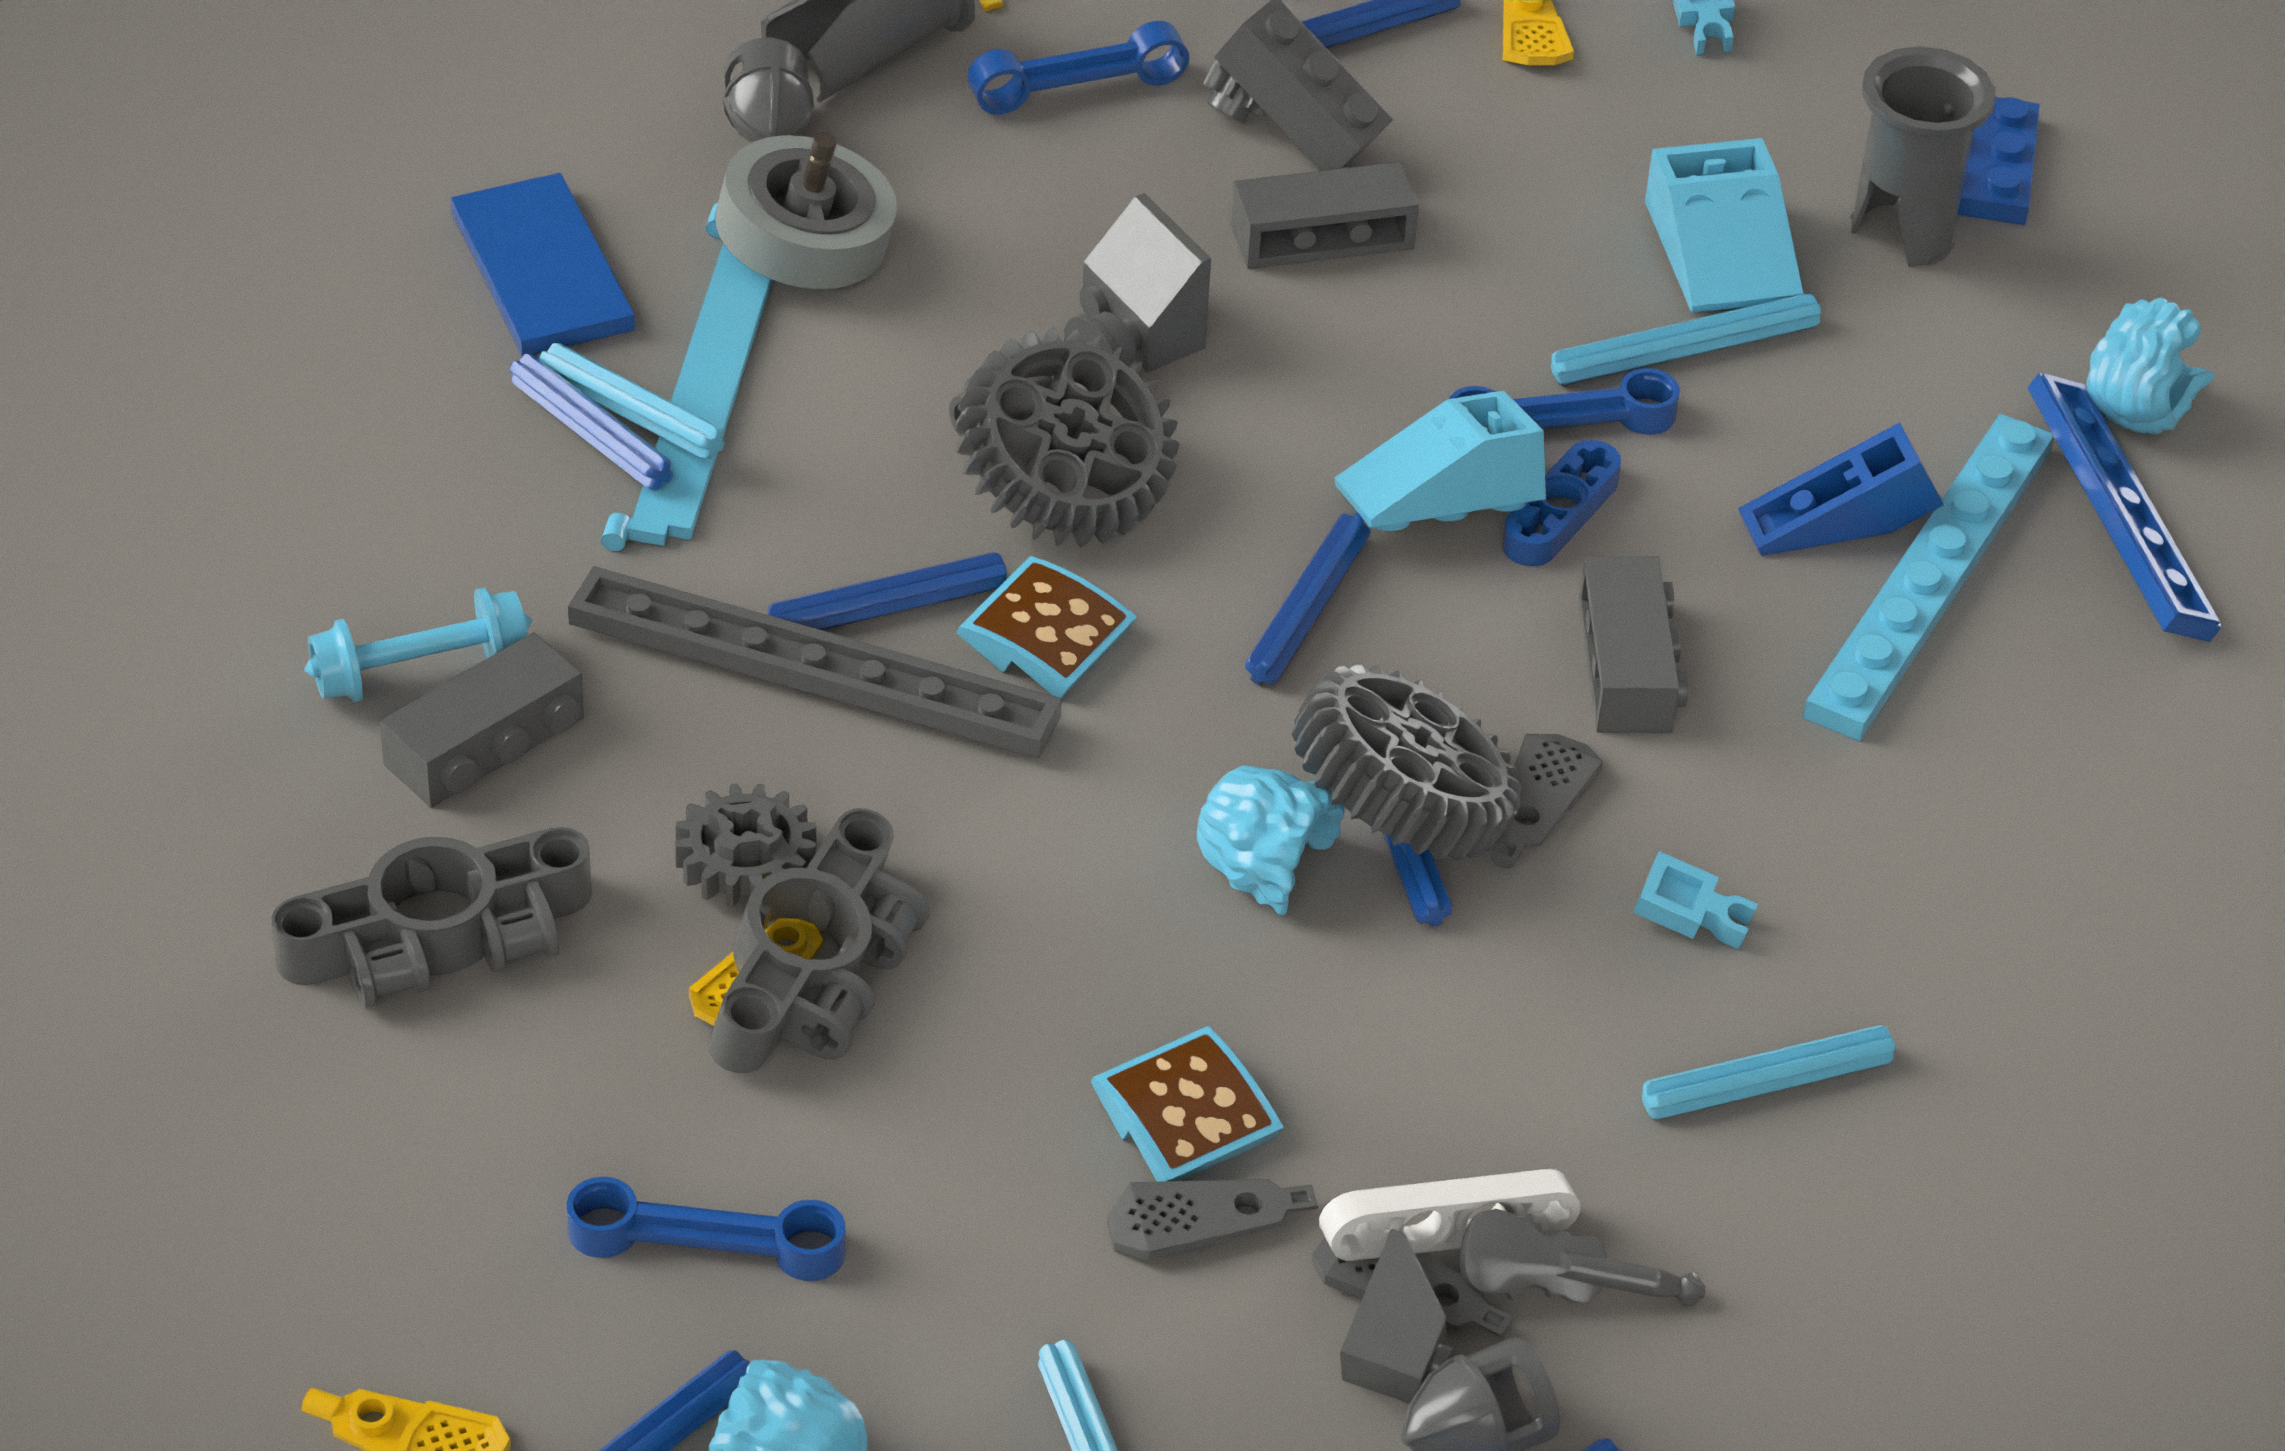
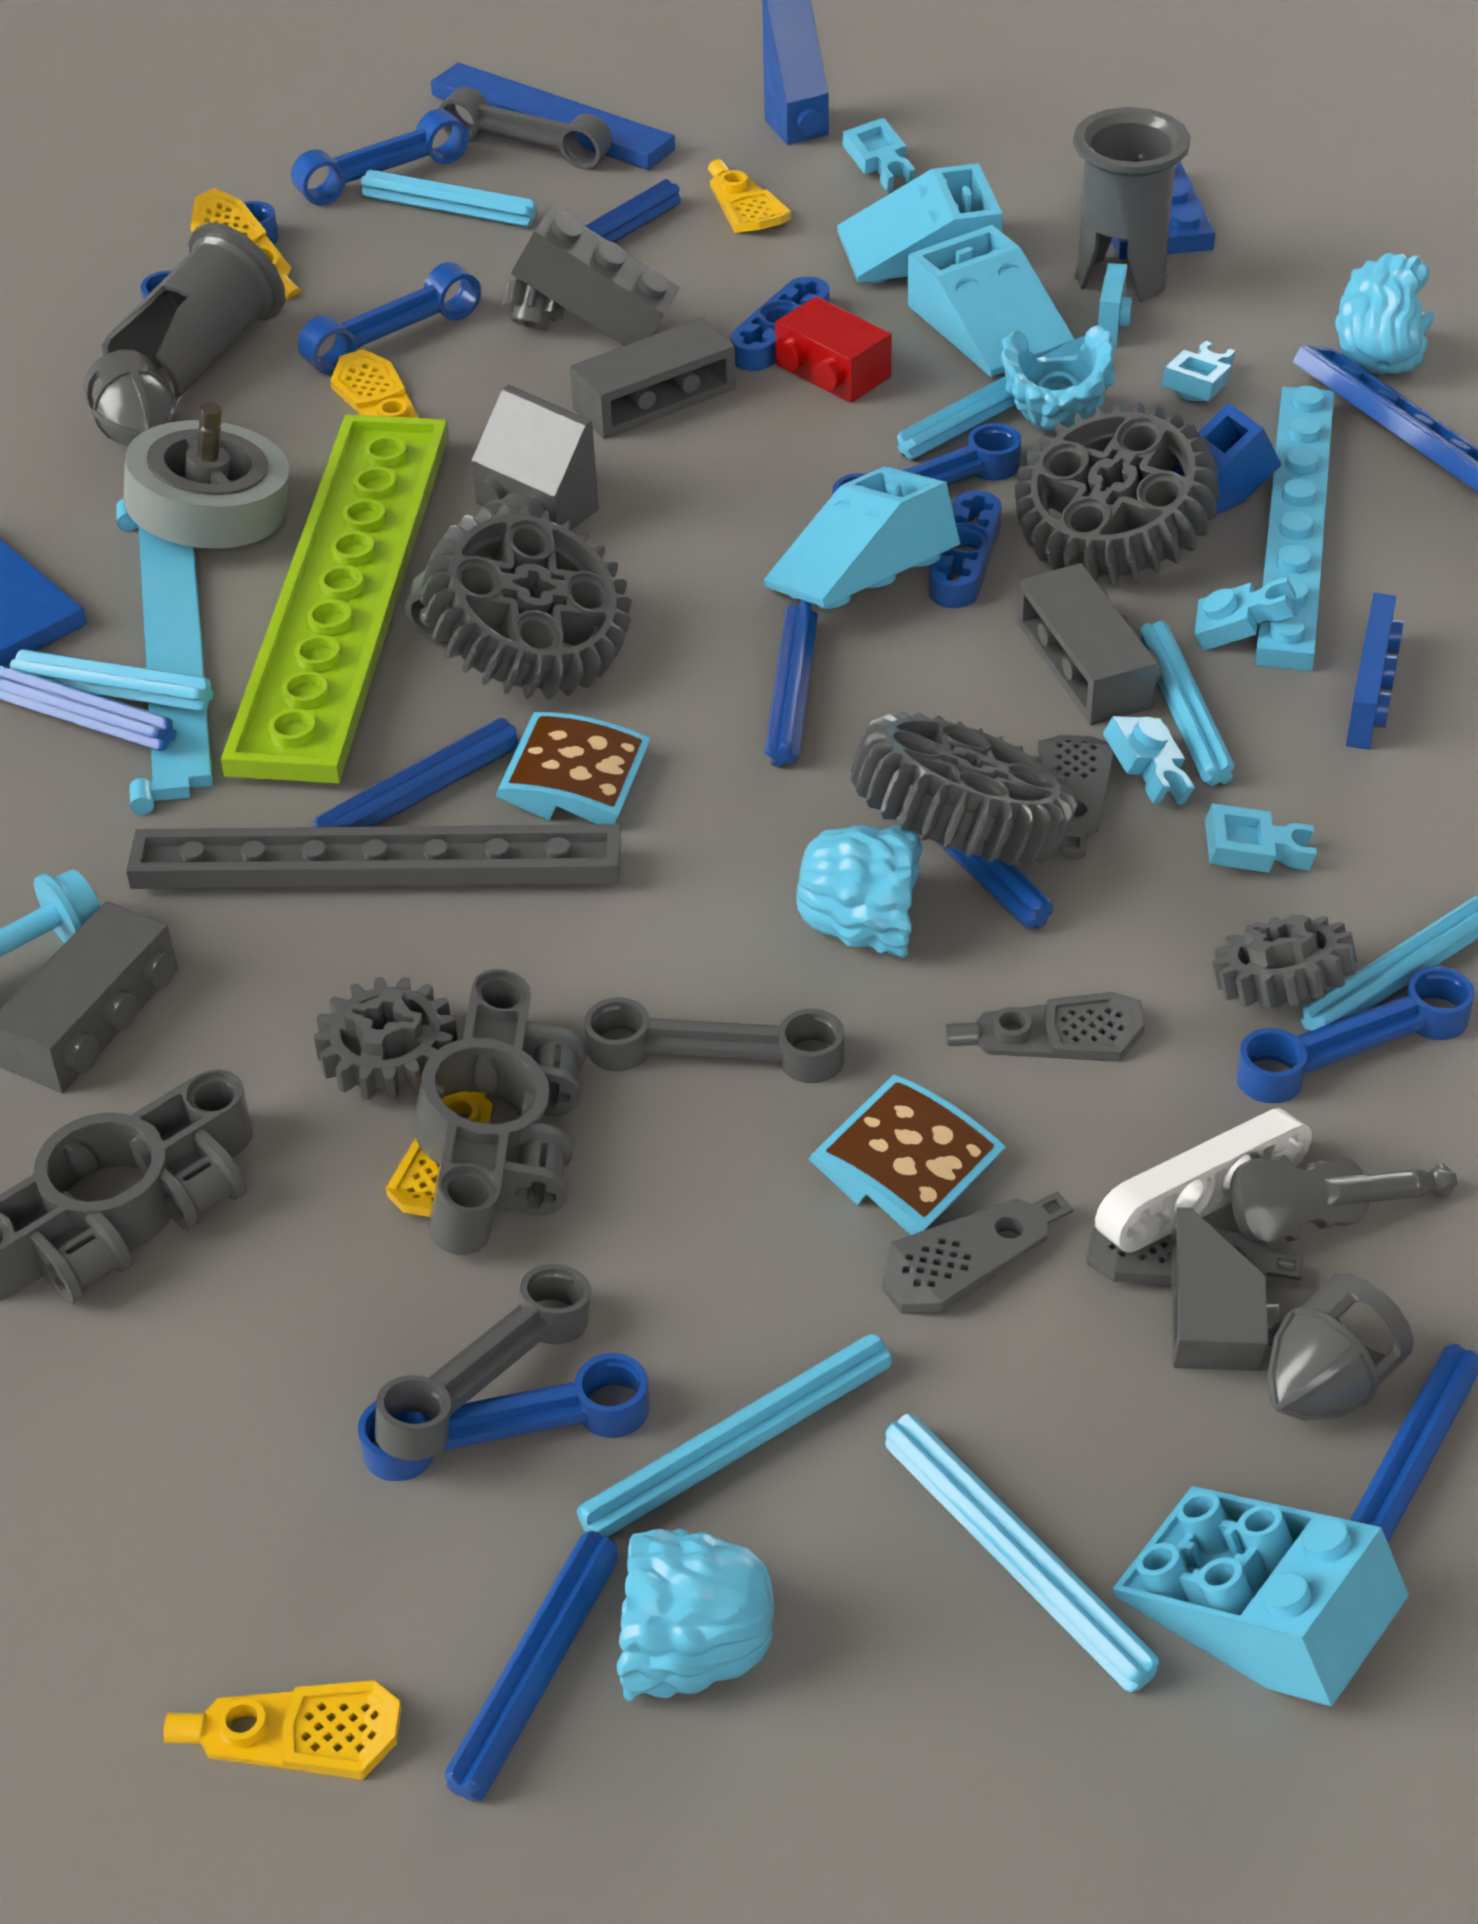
camera: 15 degrees left, 0 degrees up
(703, 1171) = (481, 1362): none -> dark grey piece
(893, 372) = (337, 602): none -> lime plate
(906, 1310) = (734, 1437): none -> medium azure axle
(1031, 147) = (371, 385): none -> yellow piece
(1058, 941) = (714, 1039): none -> dark grey piece
(1408, 1033) = (1066, 1028): none -> dark grey piece
(1464, 203) = (747, 337): none -> blue beam
(1531, 234) = (833, 349): none -> red brick
(1633, 777) = (1149, 750): none -> medium azure plate
(1644, 1031) = (1284, 961): none -> dark grey gear
(1684, 1124) = (1354, 1034): none -> blue piece
(1696, 104) = (916, 216): none -> medium azure slope
(1702, 737) = (1188, 706): none -> medium azure axle
(1723, 336) = (1057, 388): none -> medium azure hair
(1738, 488) = (1117, 492): none -> dark grey gear
(1800, 655) = (1235, 612): none -> medium azure plate
(1864, 265) = (1114, 306): none -> medium azure plate
(1912, 760) = (1375, 672): none -> blue plate
(1917, 374) = (1198, 375): none -> medium azure plate

